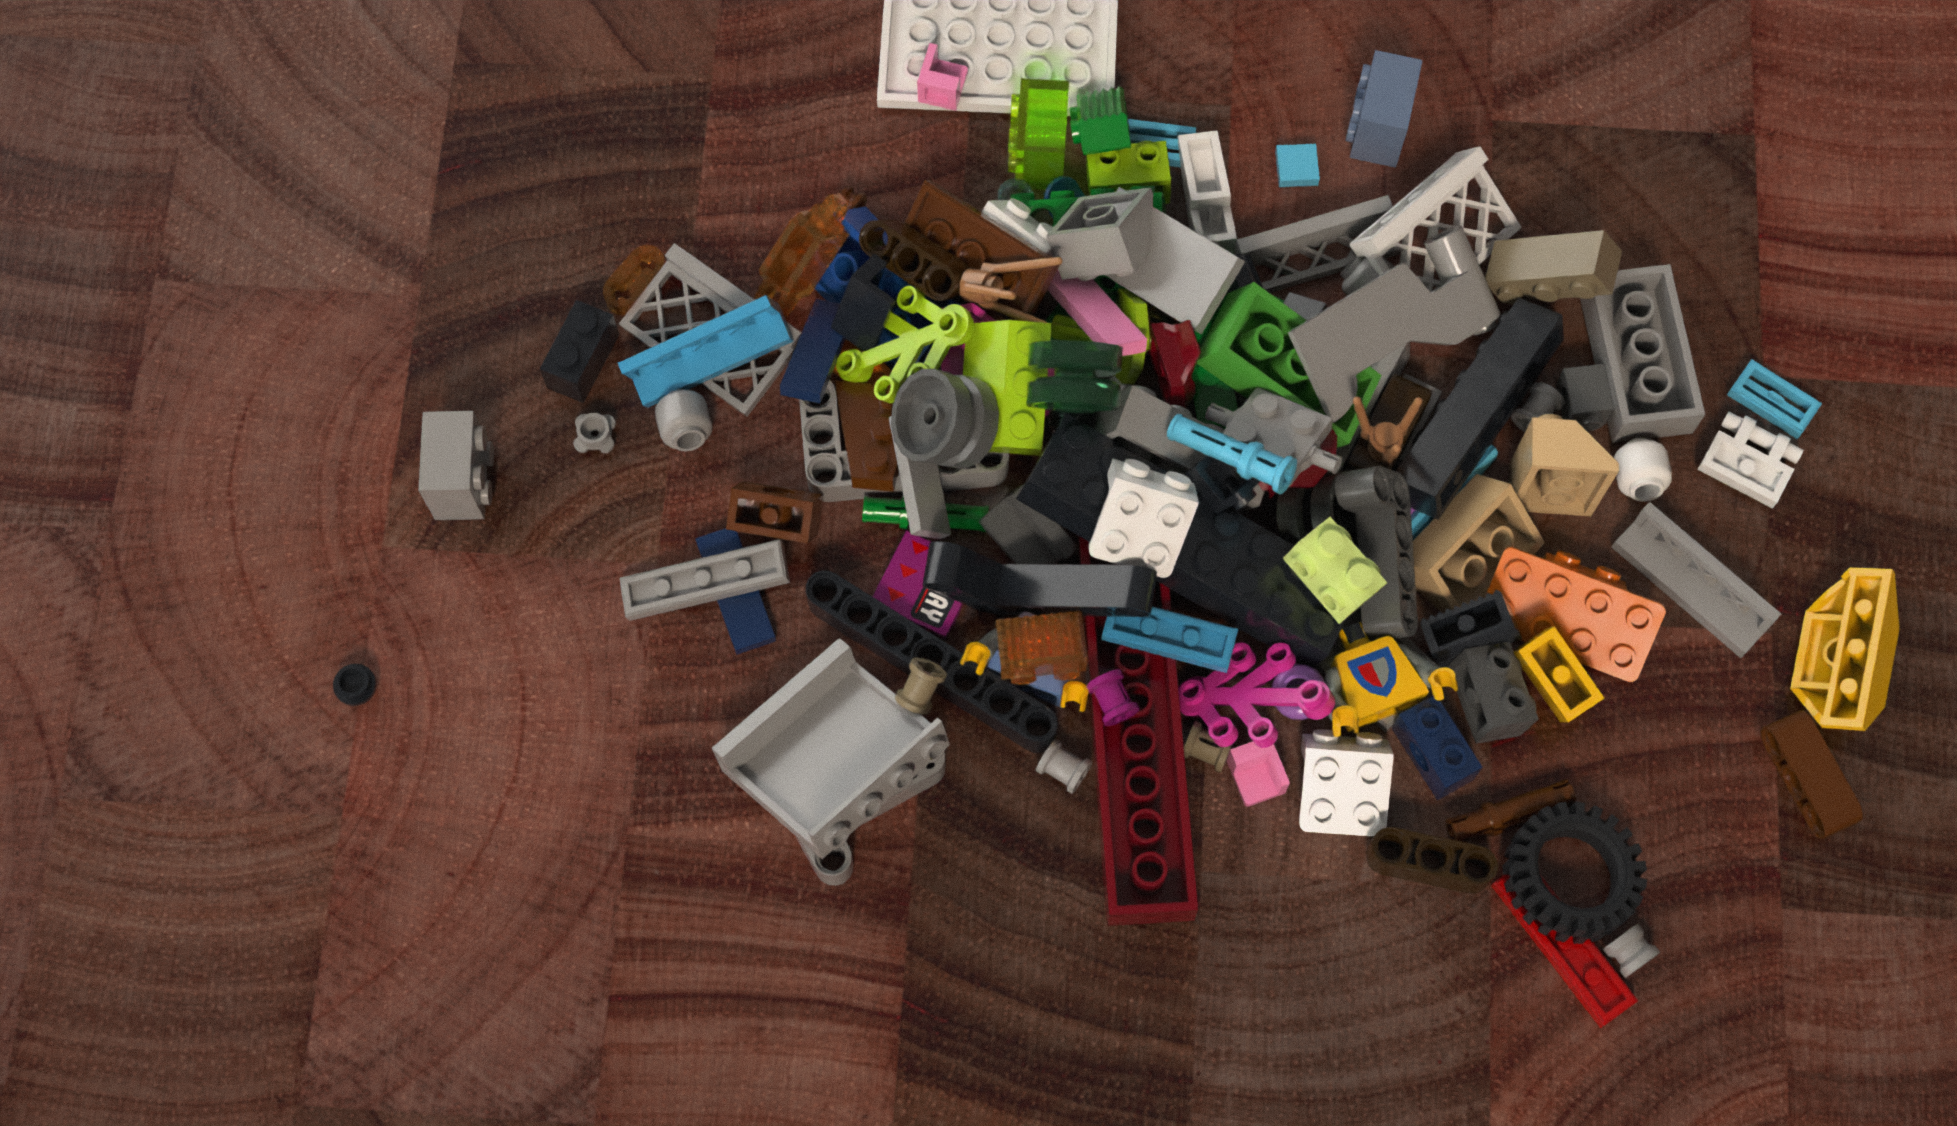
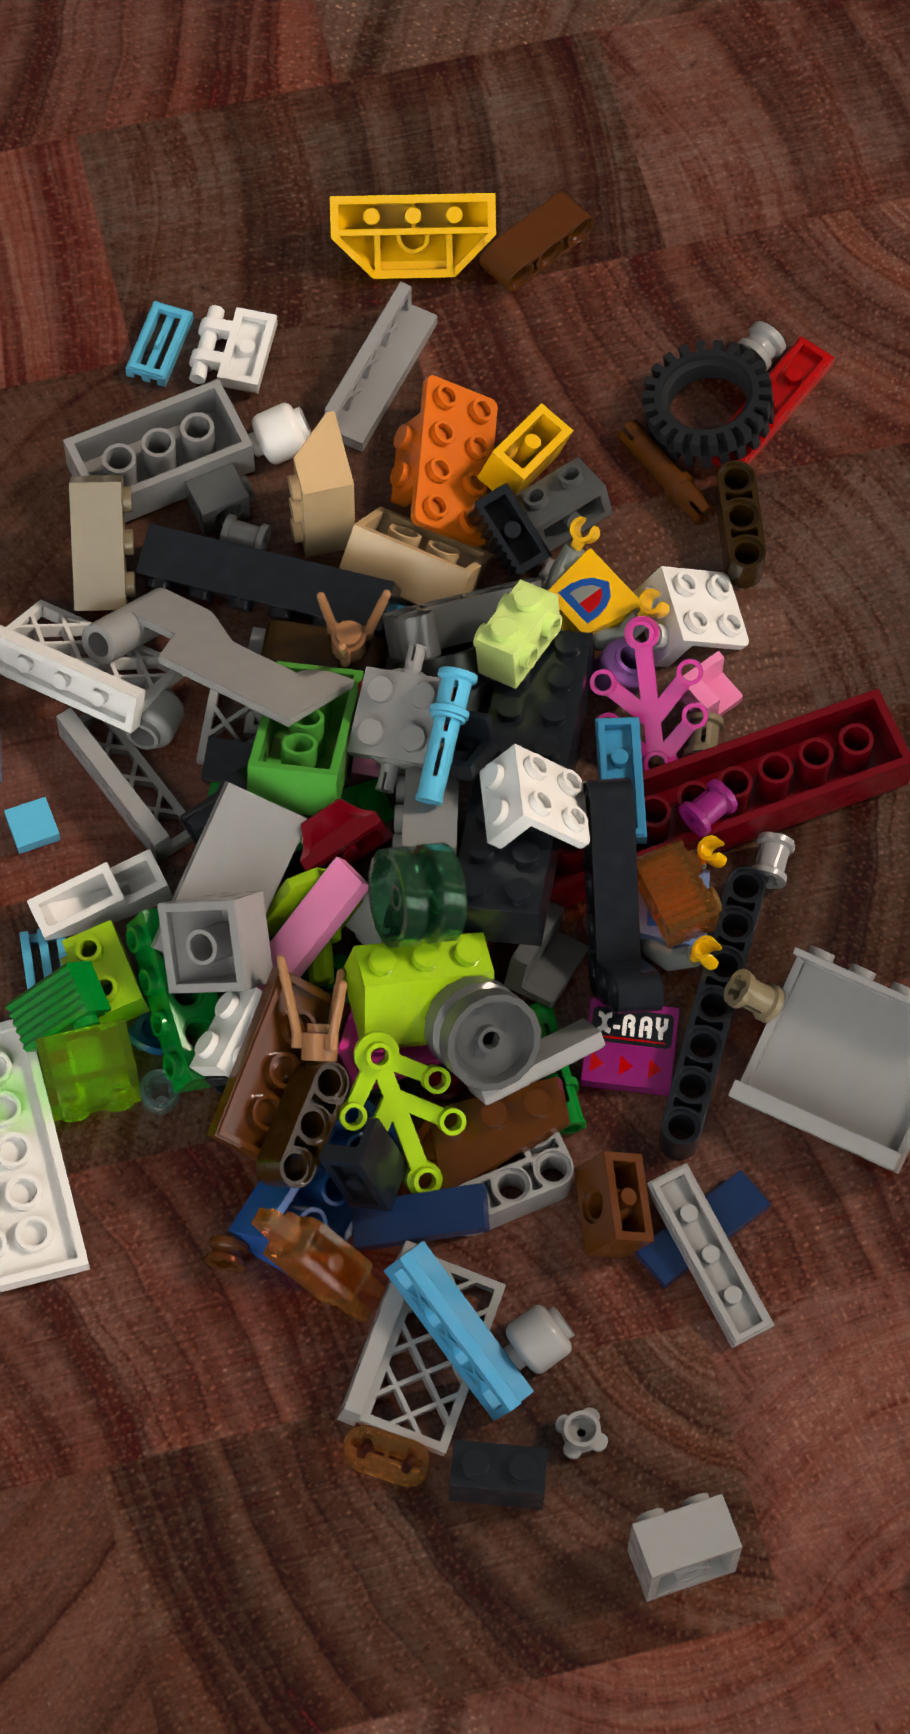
camera: 110 degrees left, 5 degrees down
(940, 81) = (51, 1195): bright pink panel -> none
(1436, 747) = (635, 537): dark blue brick -> none

